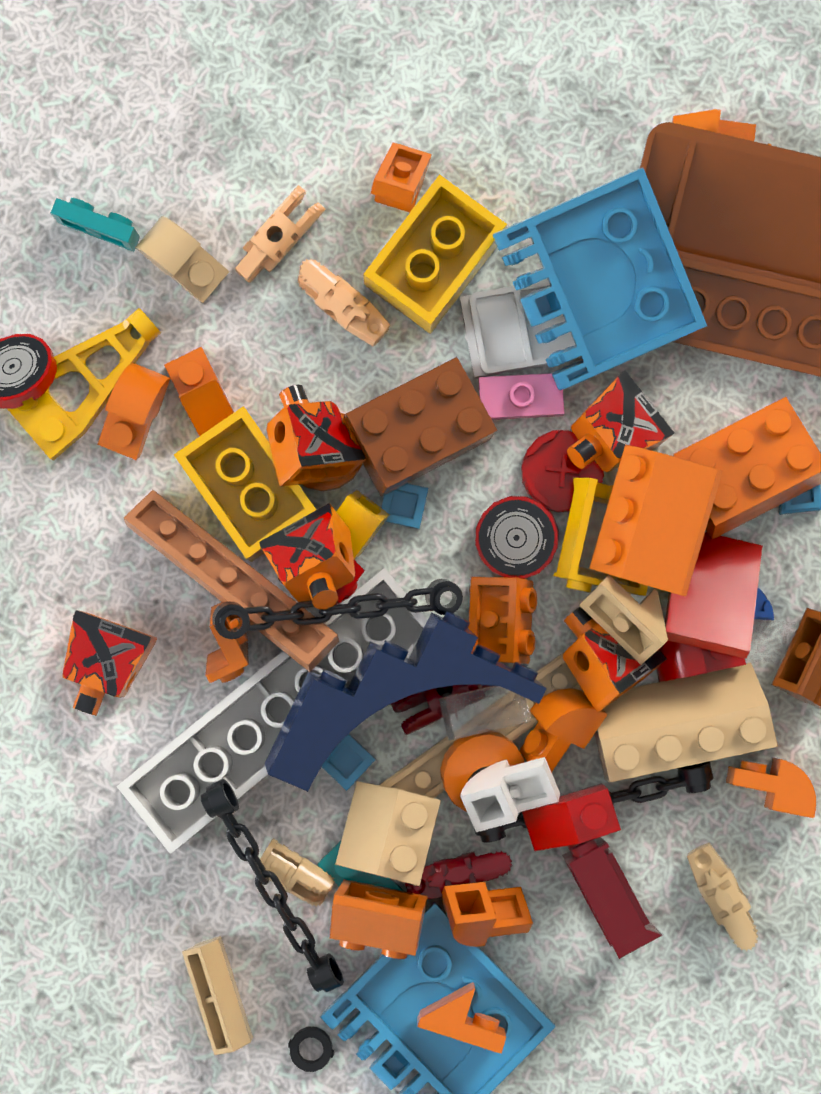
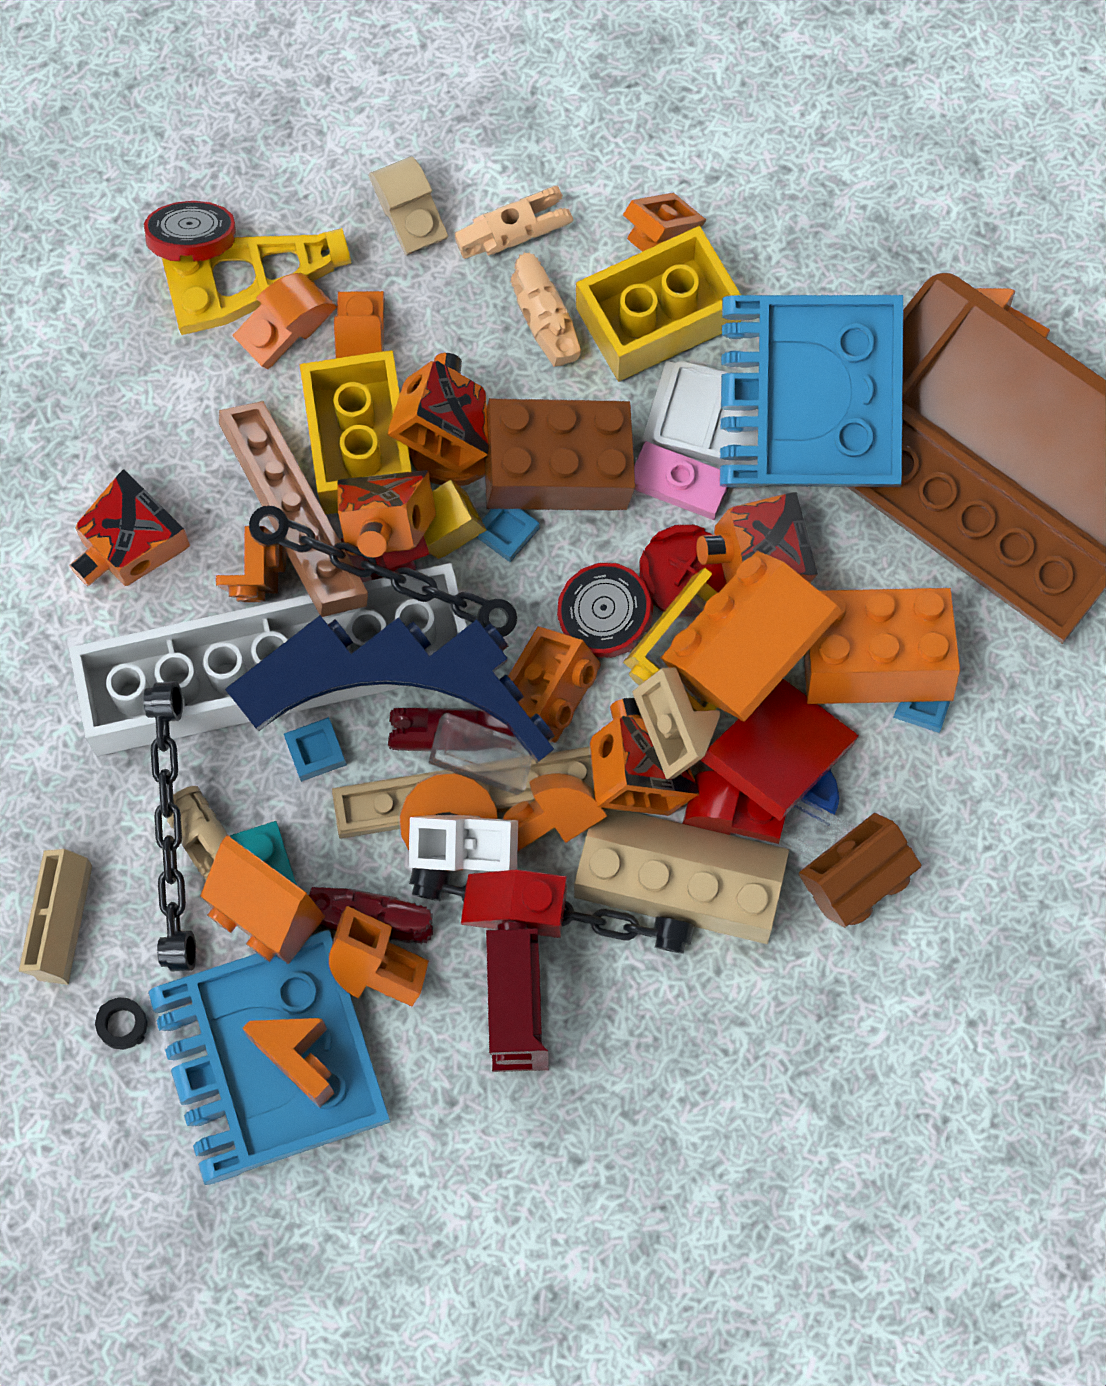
camera: 25 degrees right, 15 degrees down
(80, 216) = (333, 128): teal plate -> none
(388, 832) = (321, 831): tan slope -> none
(723, 895) = (639, 1071): tan hinge -> none
(786, 785) = (762, 986): orange brick -> none

